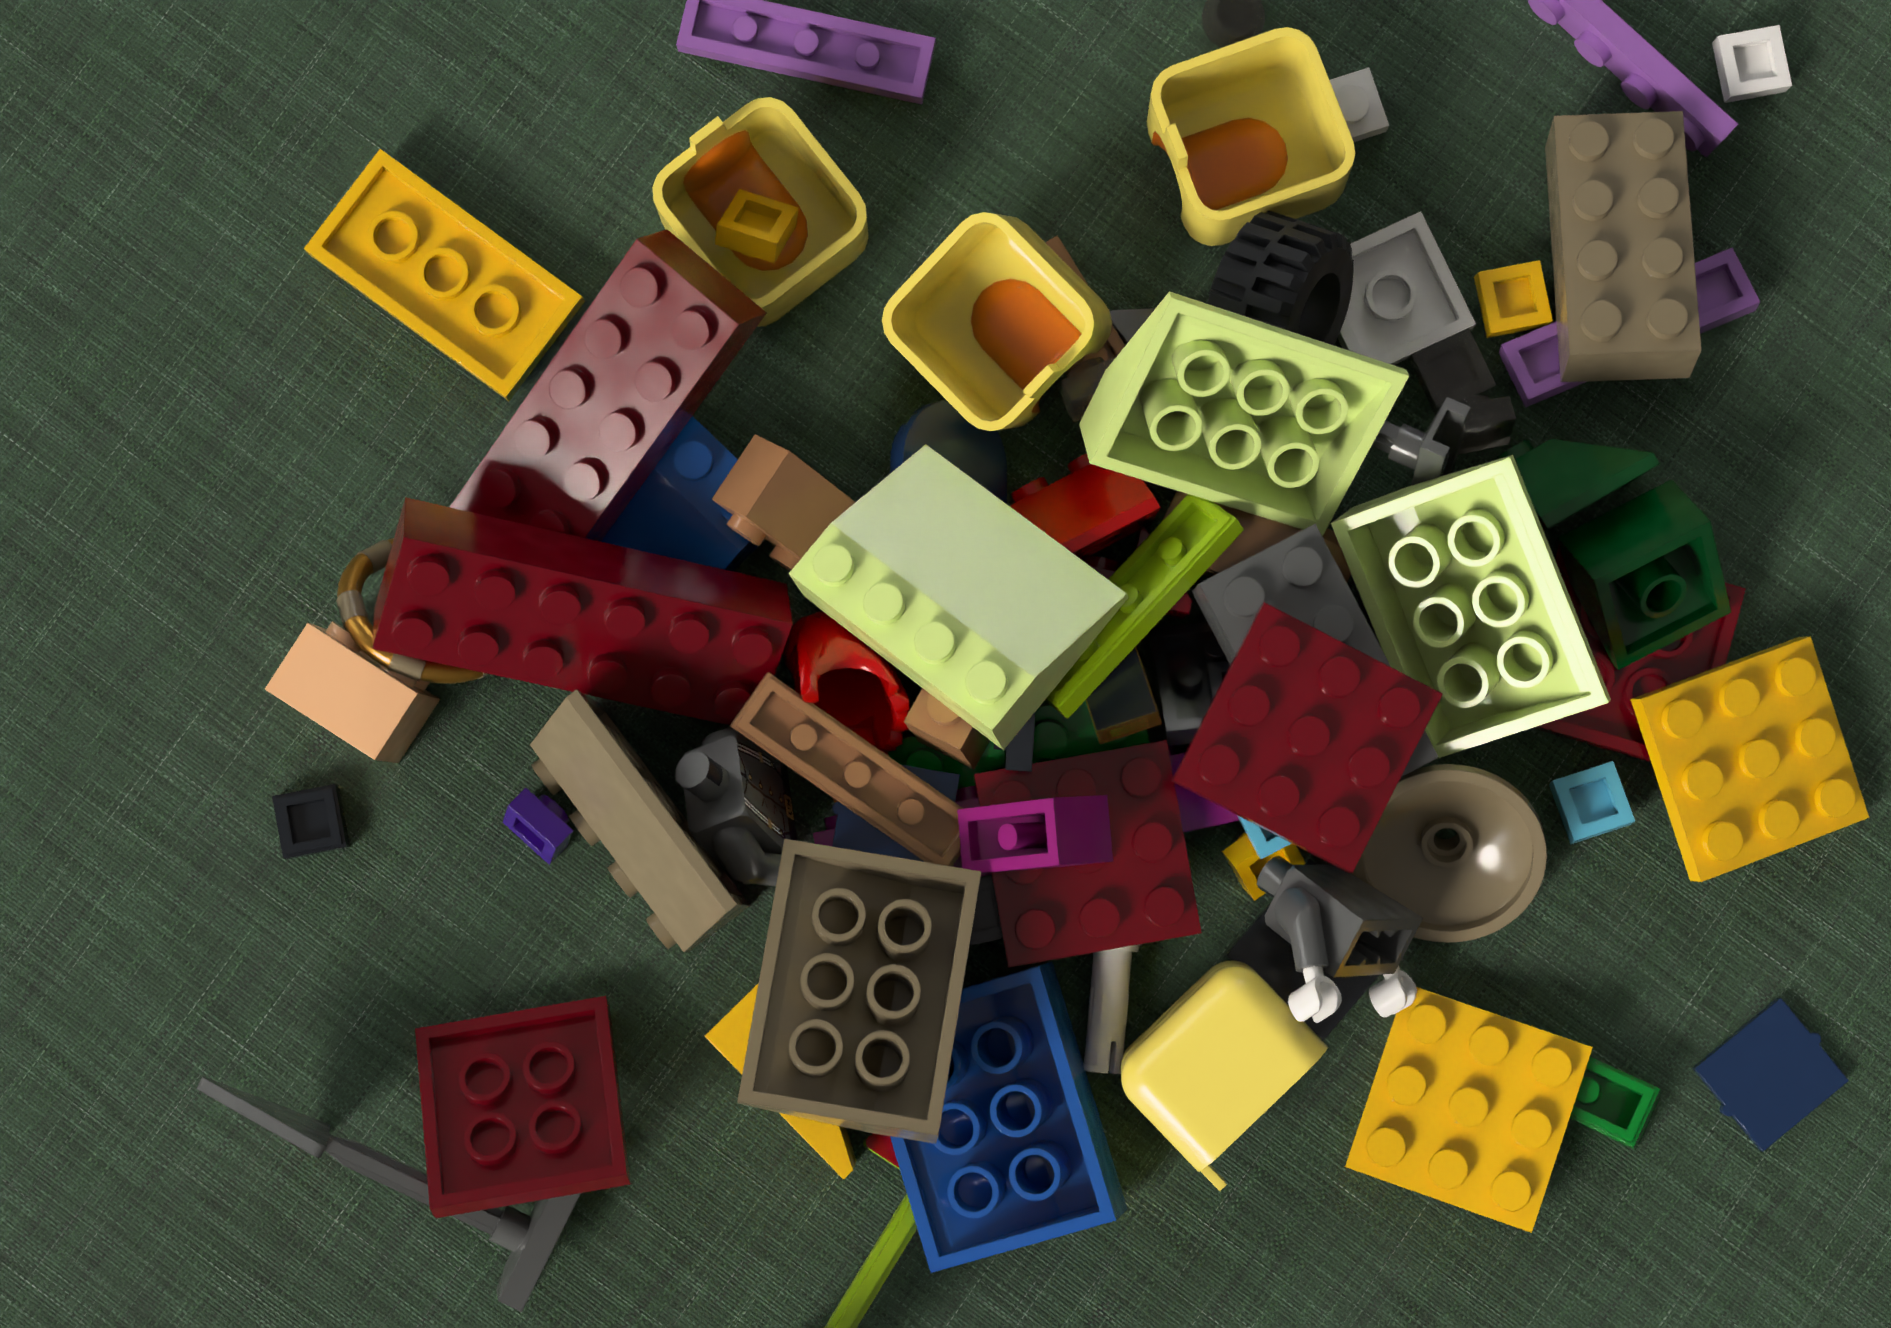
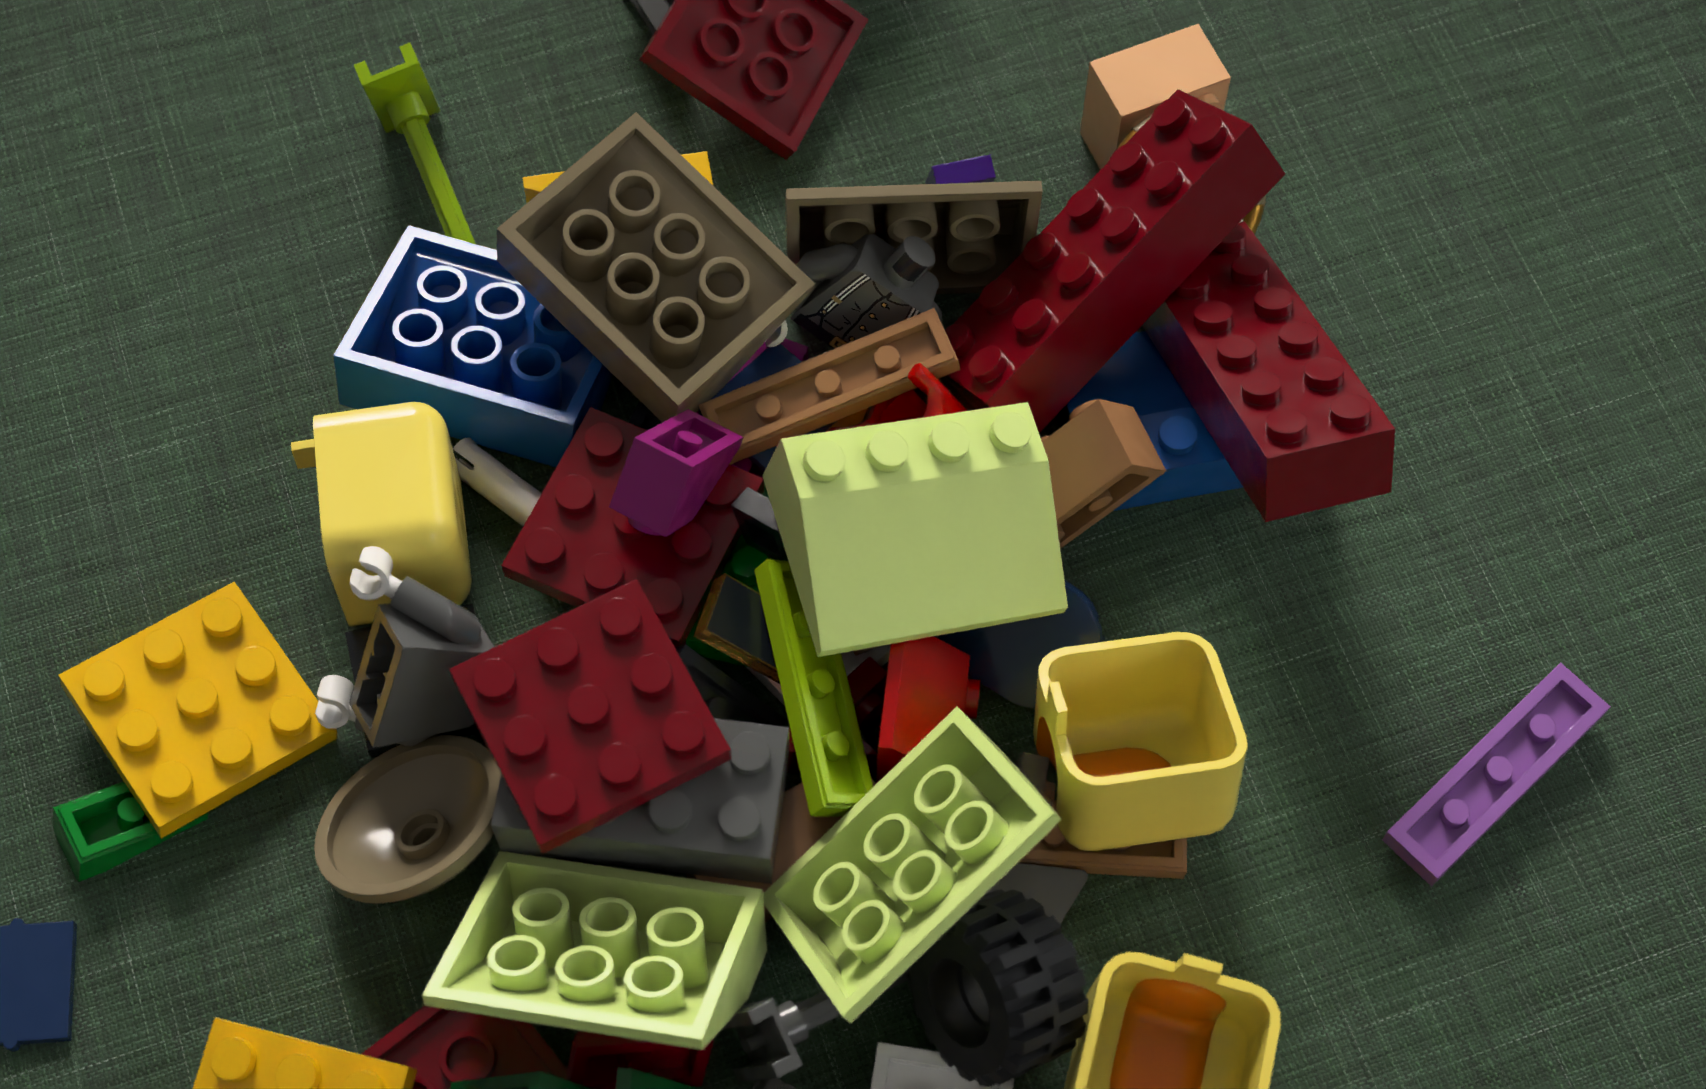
camera: 125 degrees right, 20 degrees down
(311, 821) = (1074, 46): black tile -> none
(444, 274) = (1475, 372): yellow plate -> none
(756, 226) = (1353, 618): yellow plate -> none
(777, 157) = (1363, 618): light yellow piece -> none
(1591, 802) = (358, 985): medium azure plate -> none

